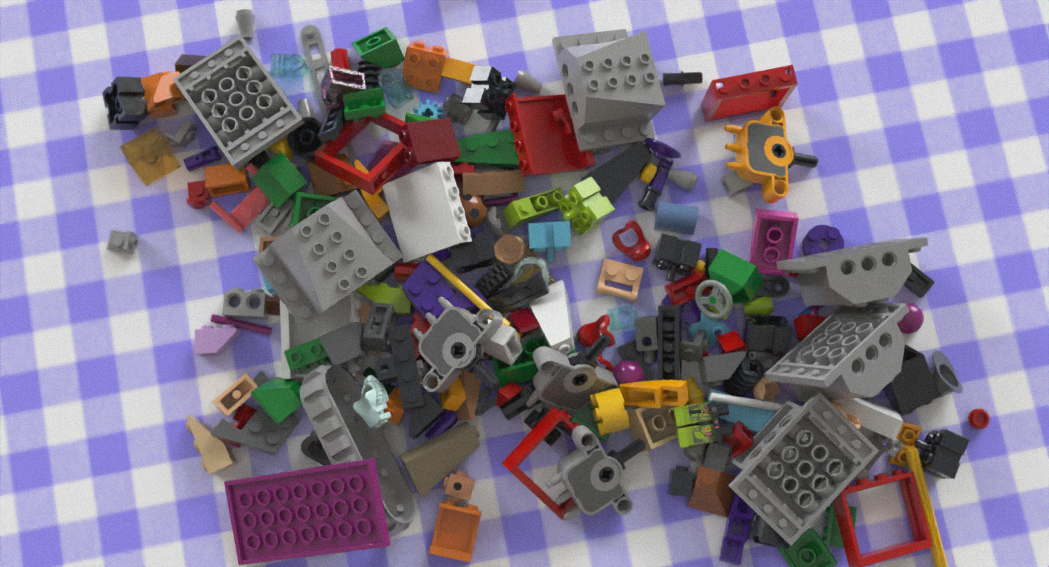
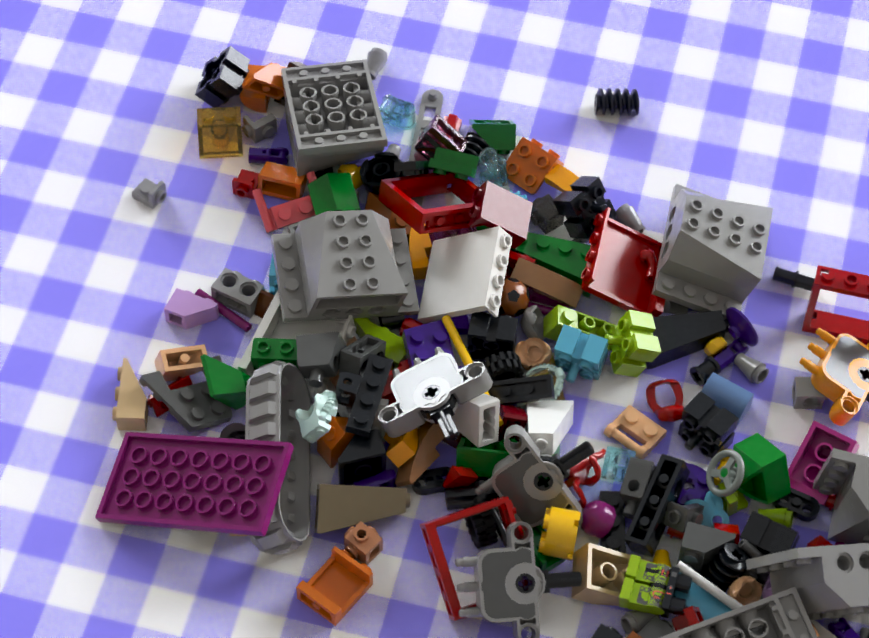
camera: 25 degrees right, 25 degrees down
(655, 393) = (617, 537): light orange slope -> none
(685, 288) = (698, 462): red slope -> none

